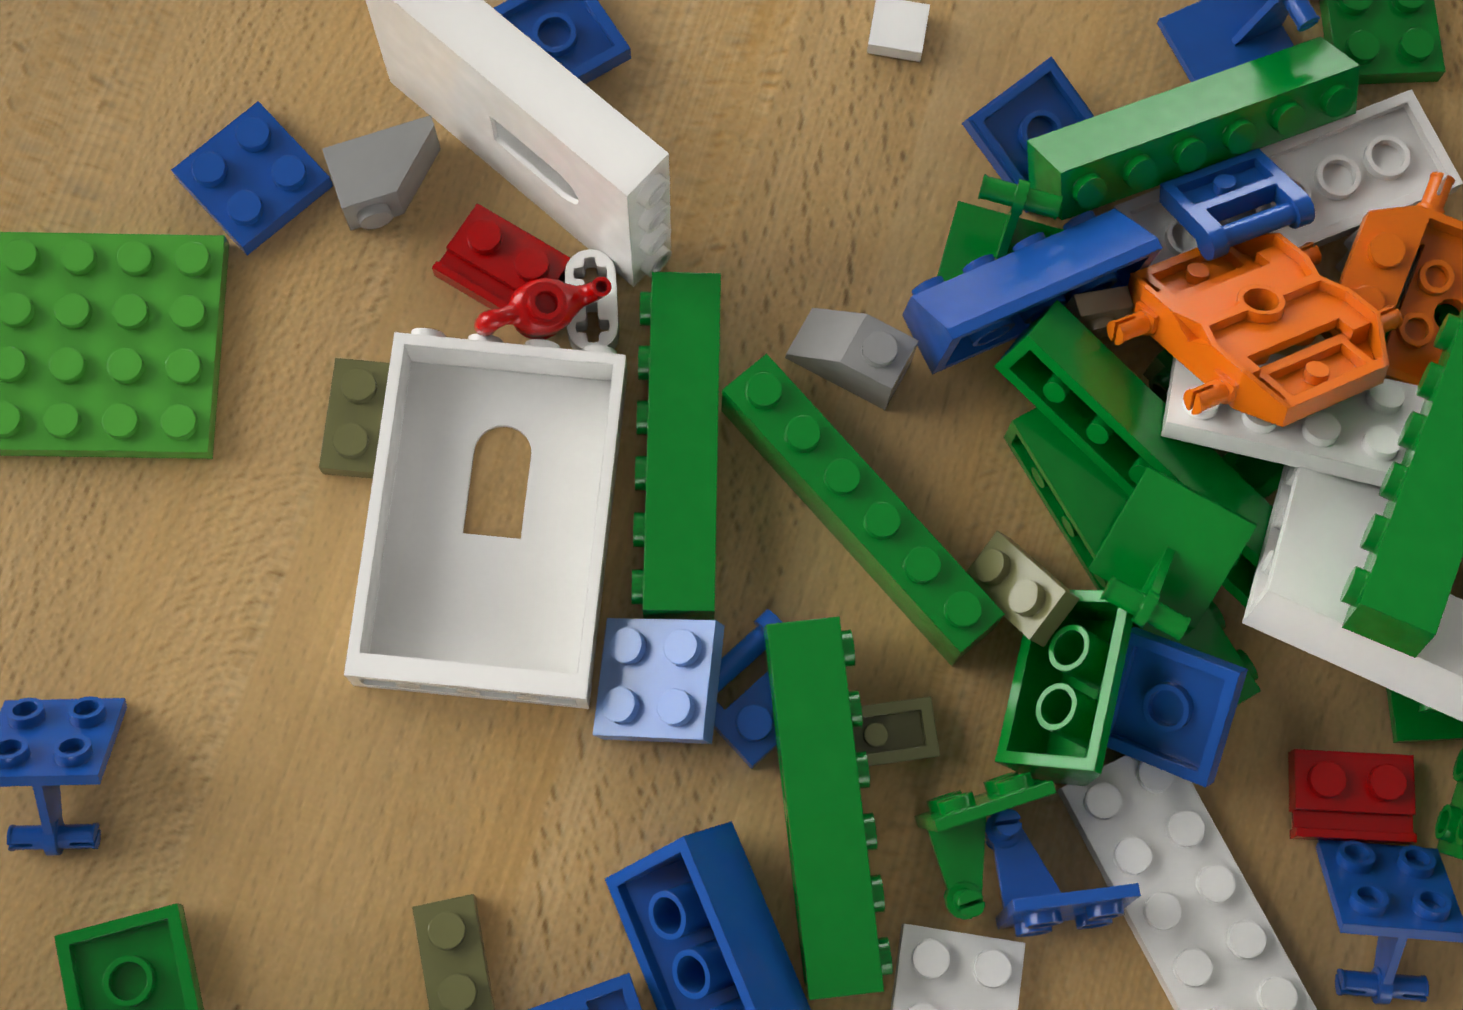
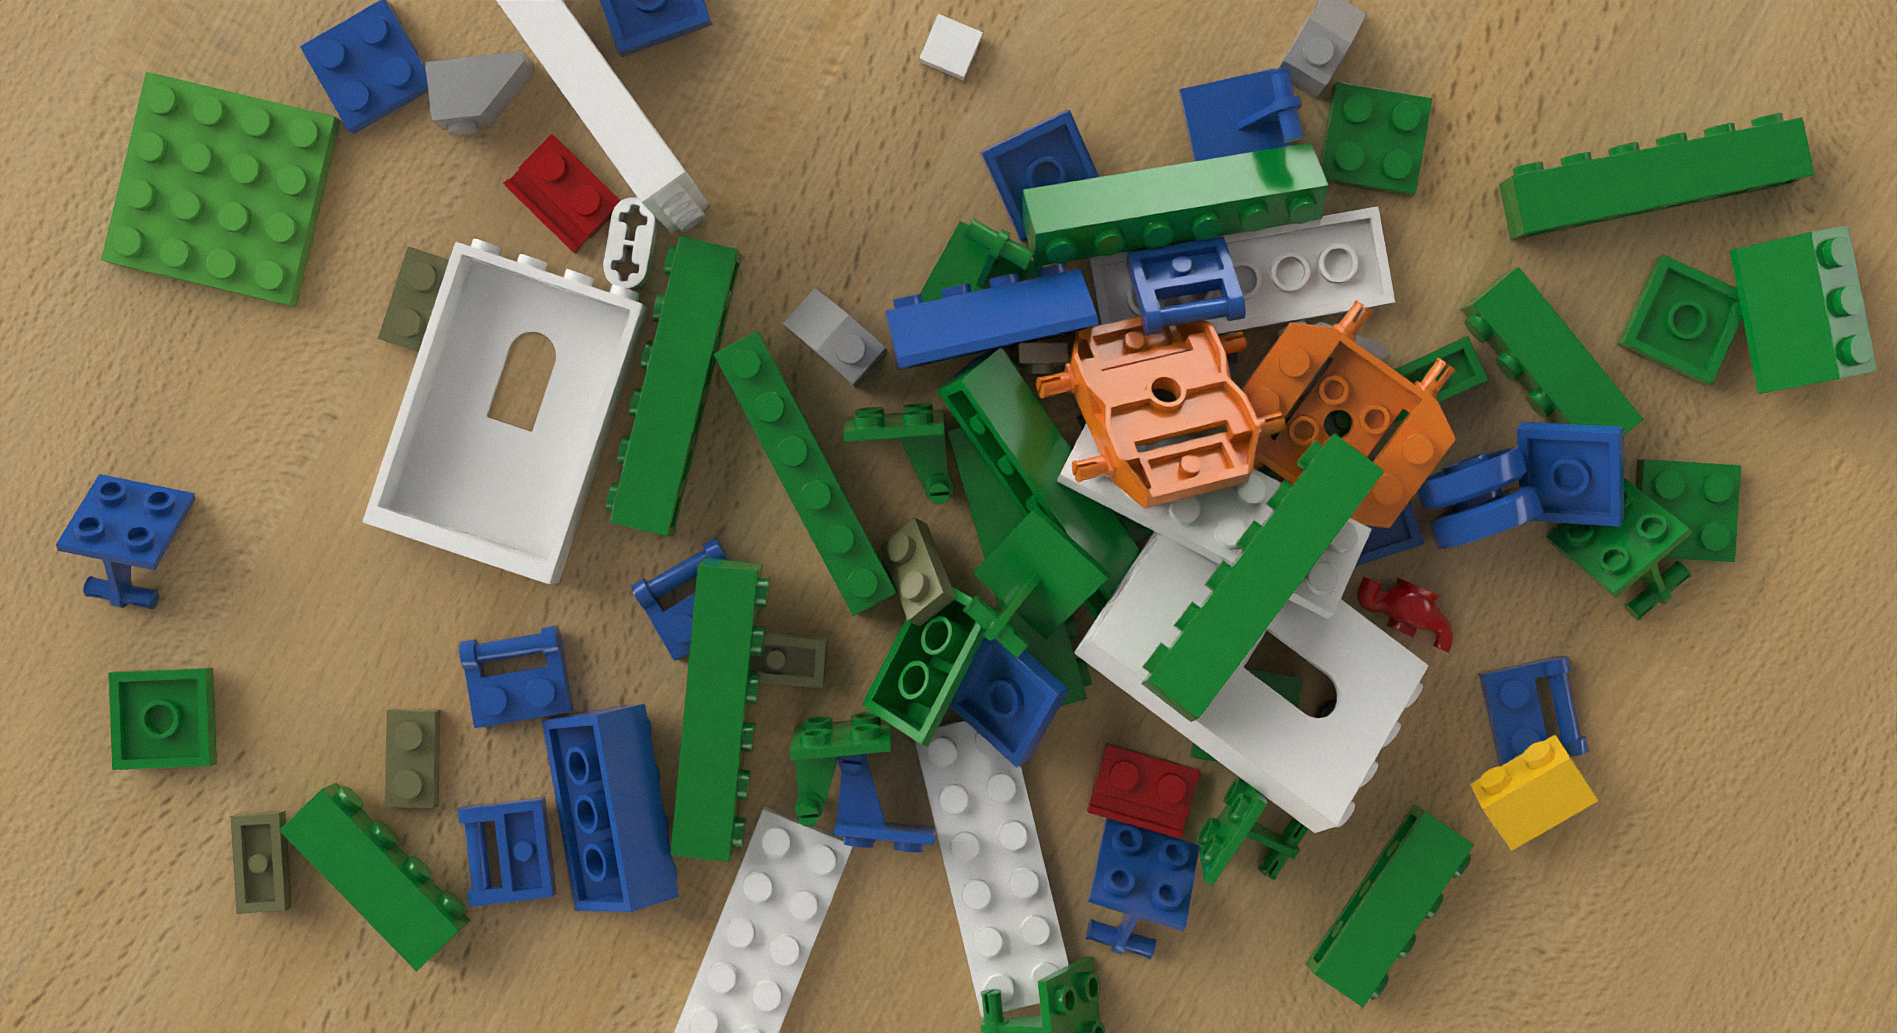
camera: 20 degrees right, 15 degrees up
(542, 307) = (582, 245): red piece -> none
(571, 850) = (517, 693): none -> blue plate
(659, 680) = (614, 578): medium blue plate -> none
(987, 438) = (921, 436): none -> green plate

